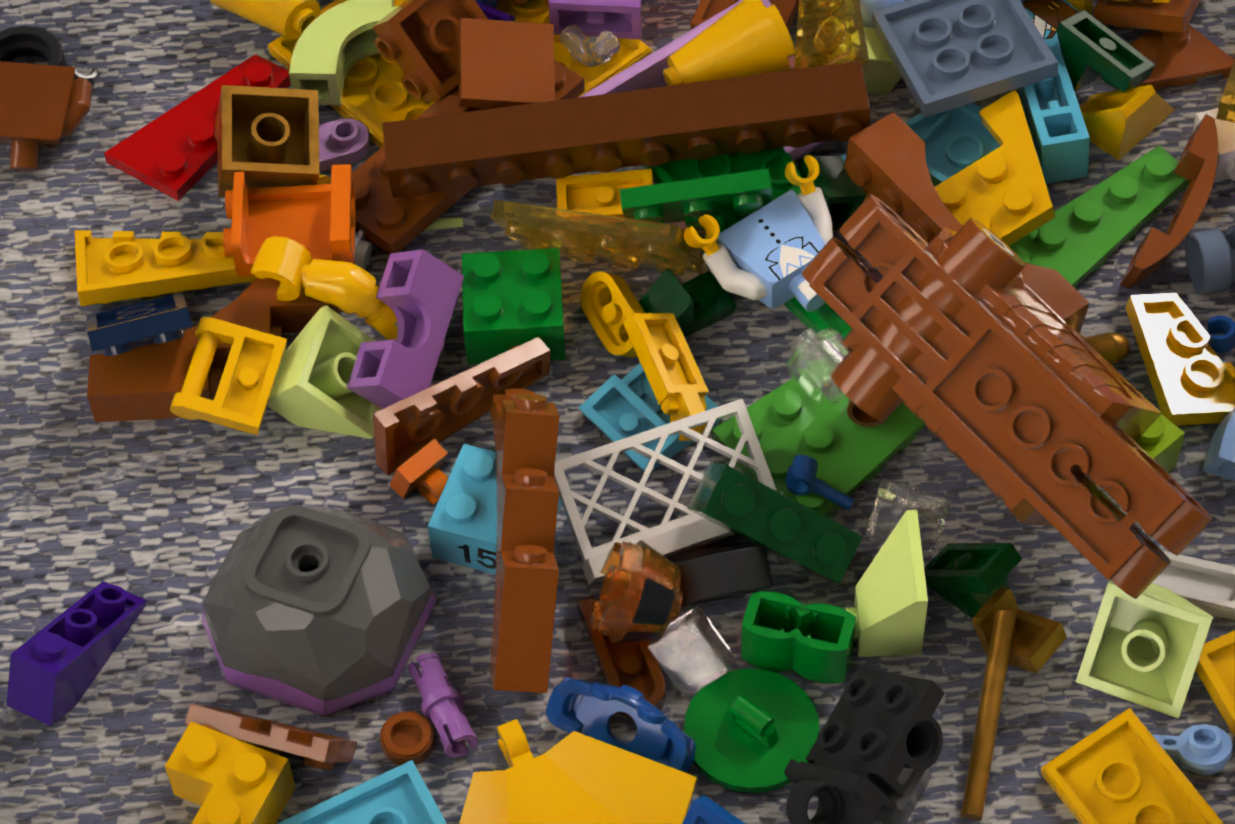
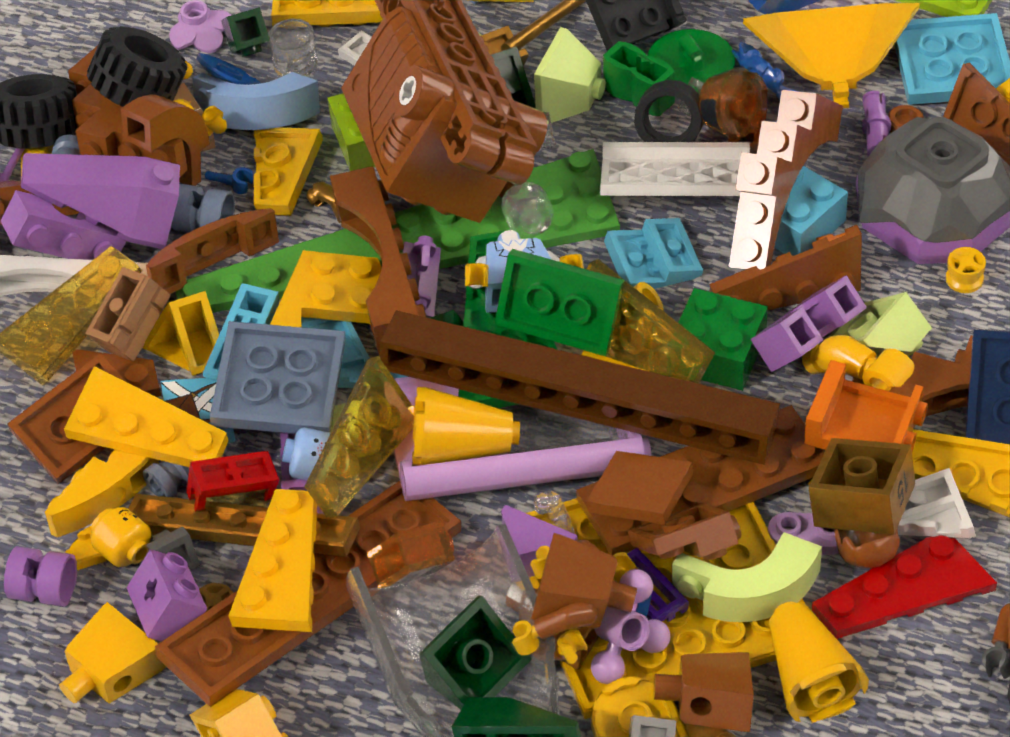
camera: 155 degrees left, 5 degrees down
(186, 195) = (936, 509): none -> white wing
(242, 501) = (963, 261): none -> yellow wheel
(245, 379) = (942, 320): yellow plate -> none
(668, 365) = (632, 247): yellow hinge -> none
(775, 522) = (621, 118): dark green brick -> none
(802, 481) = (578, 157): blue hand -> none
(1094, 50) = (178, 345): dark green slope -> none
(1189, 68) = (128, 314): none -> medium nougat brick

